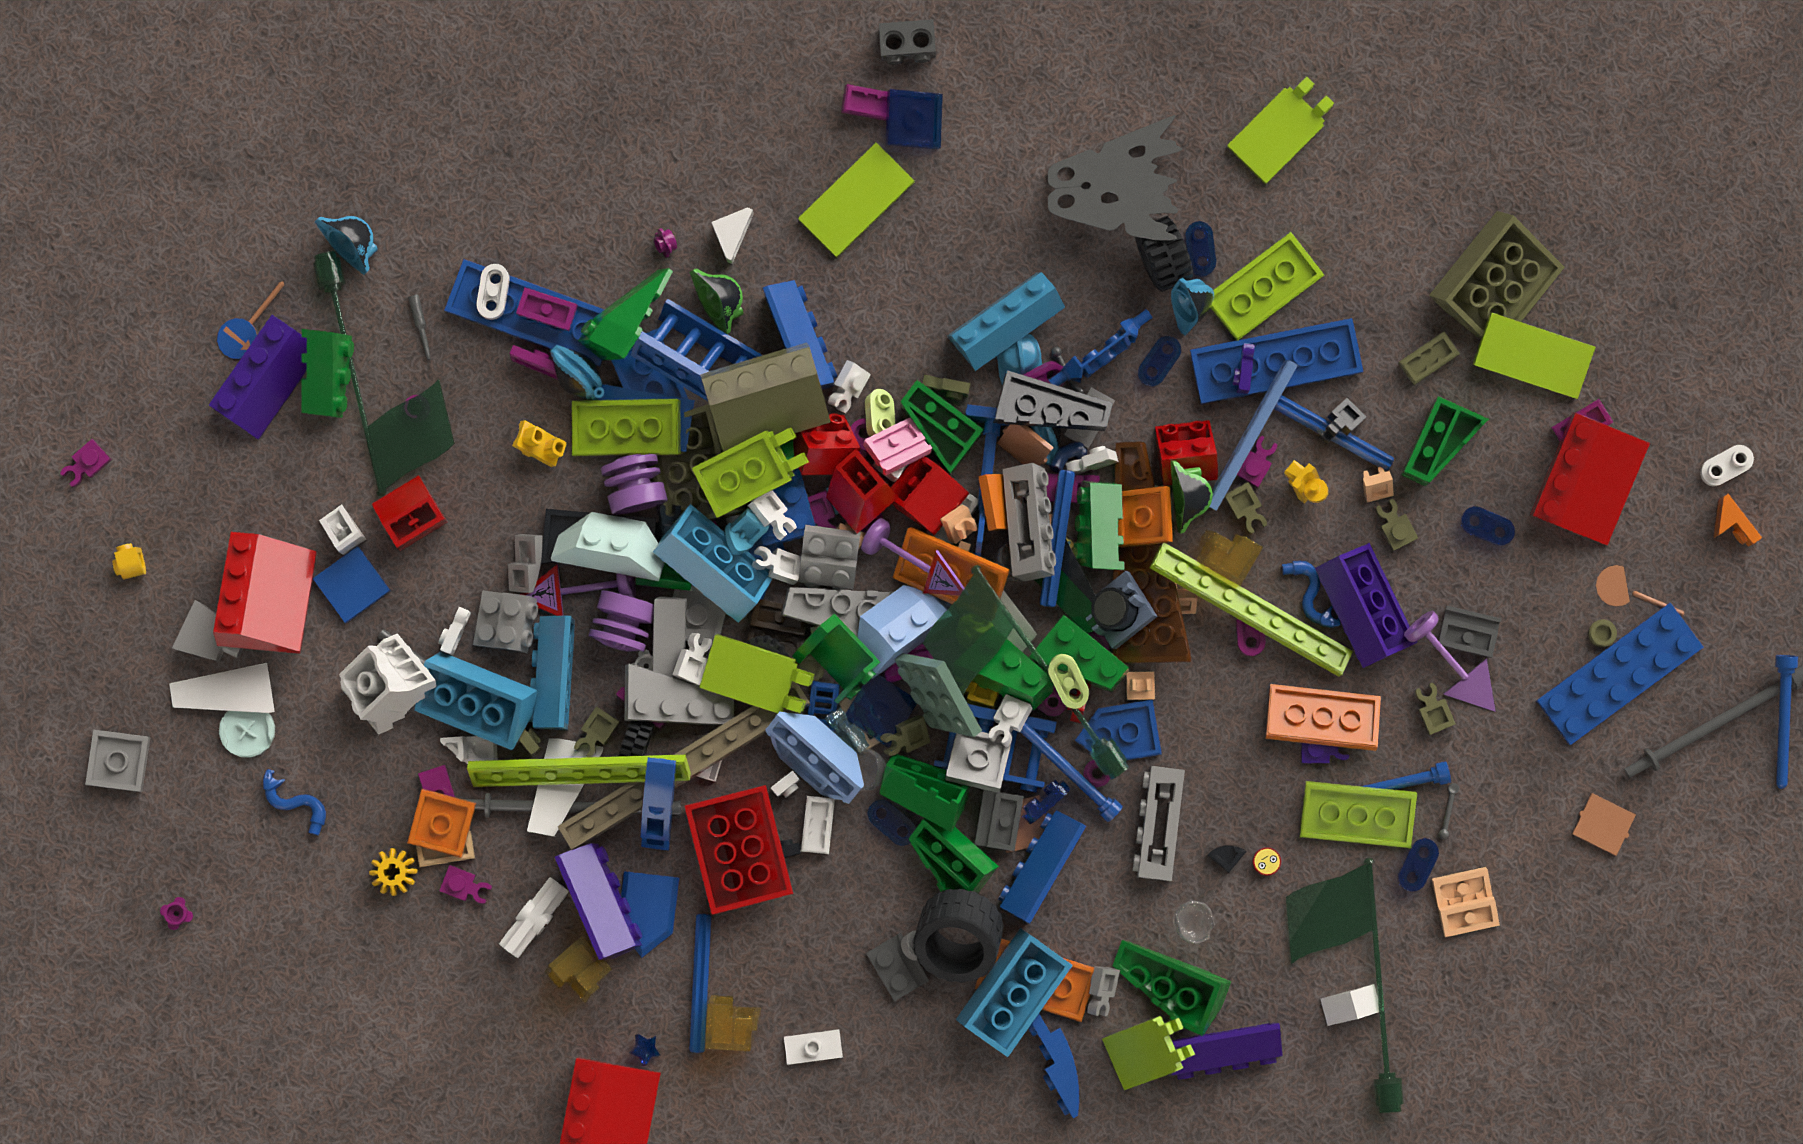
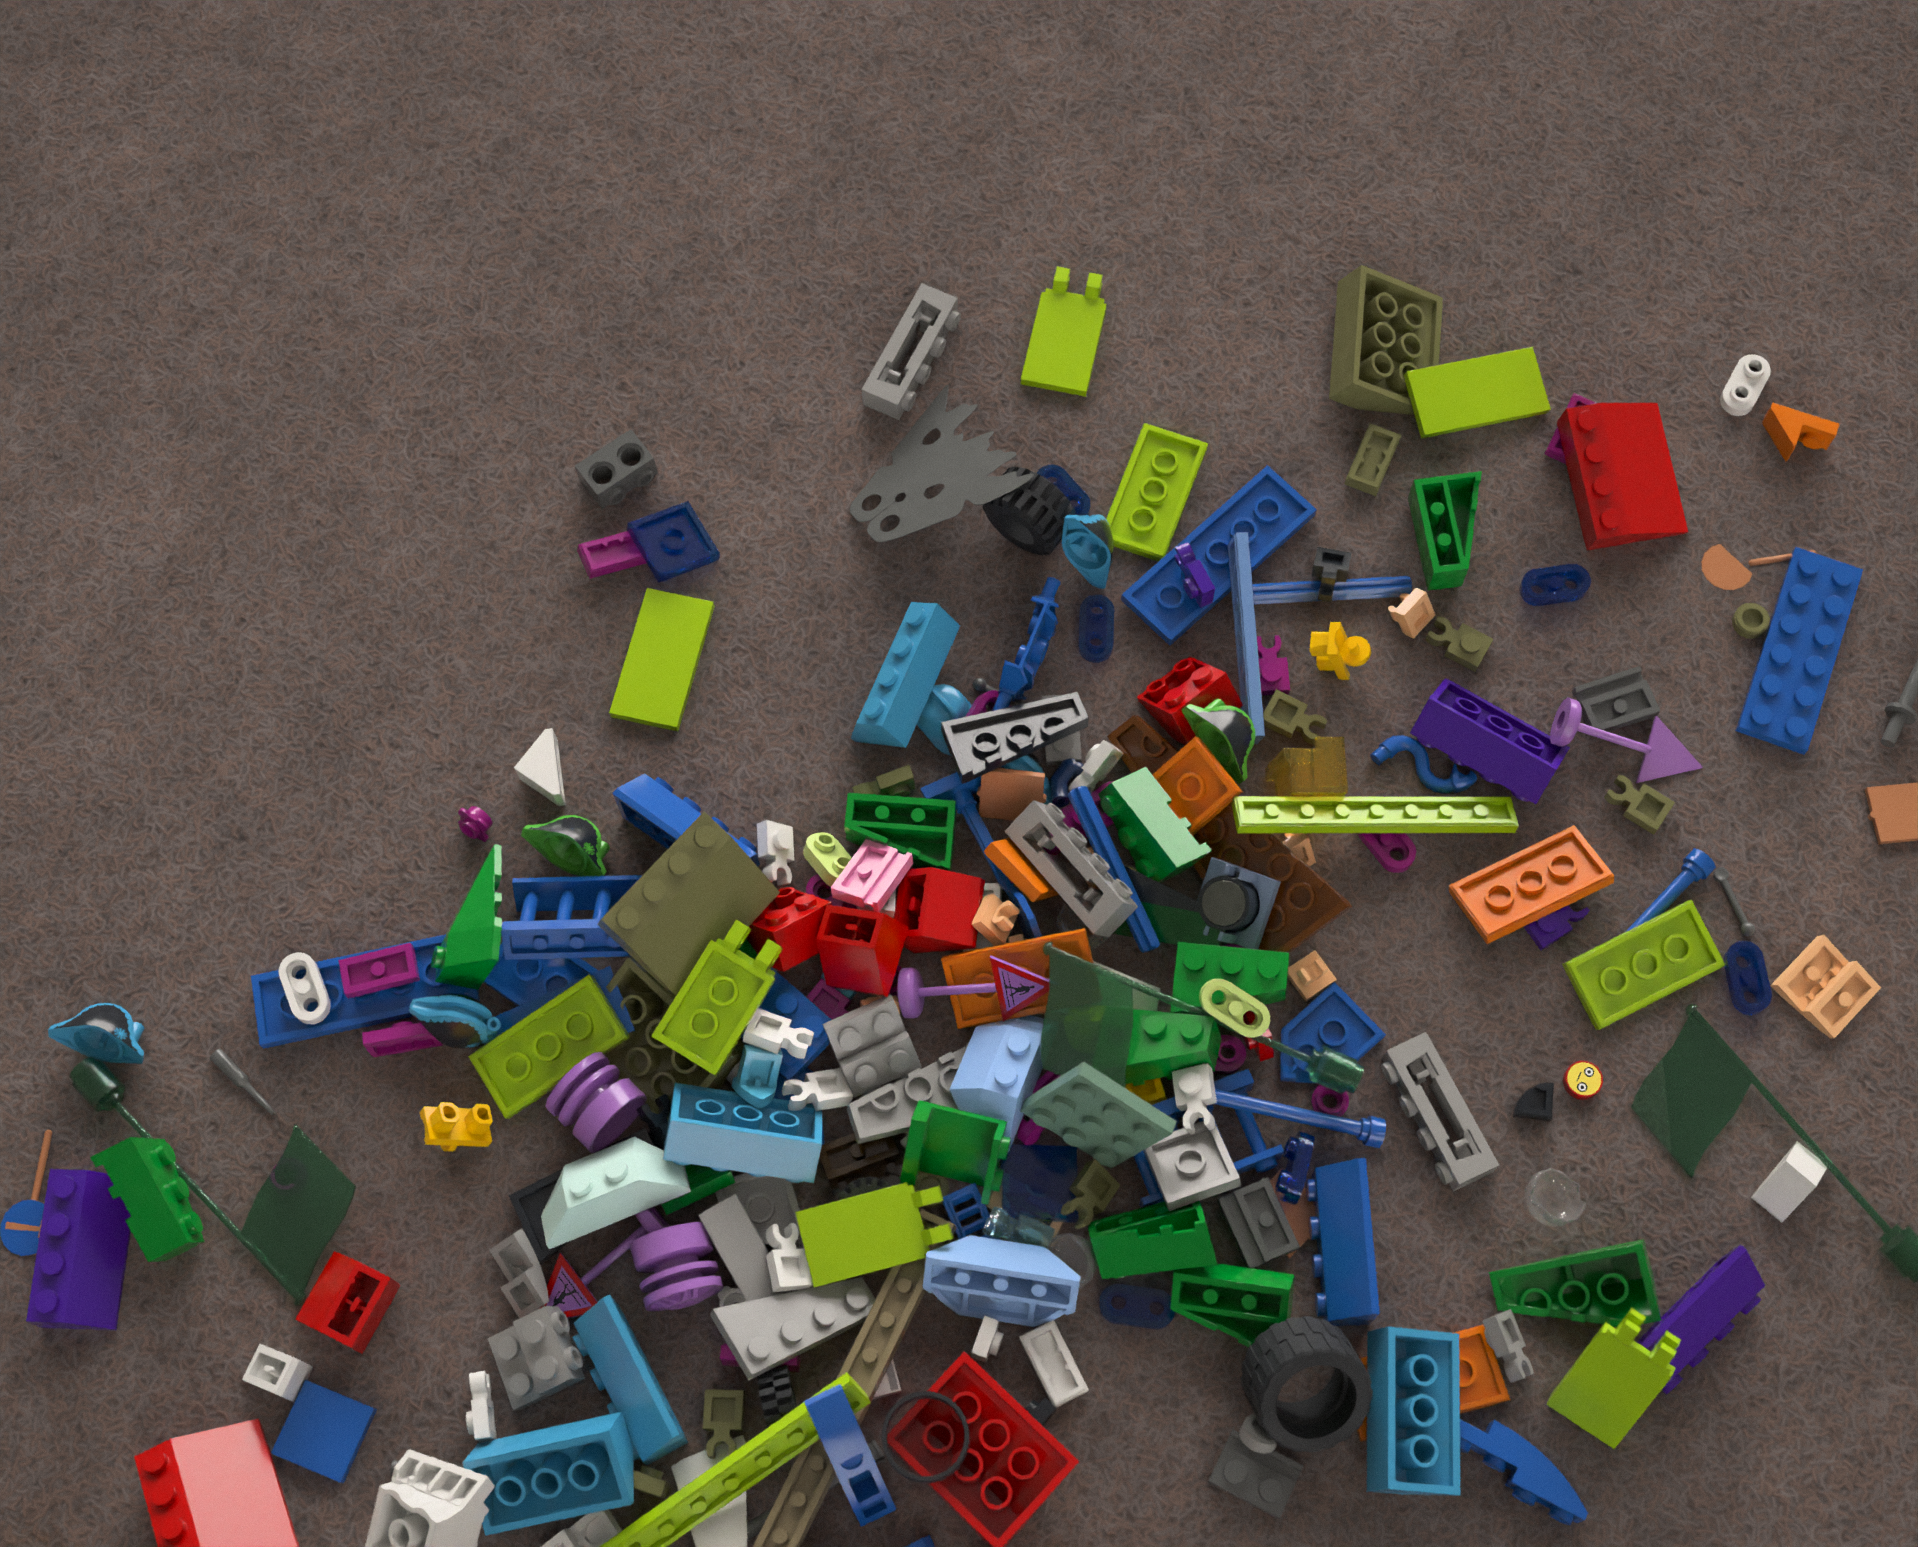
camera: 30 degrees left, 15 degrees down
(681, 819) = (921, 1395): none -> black tyre
(1202, 54) = (937, 316): none -> light grey brick

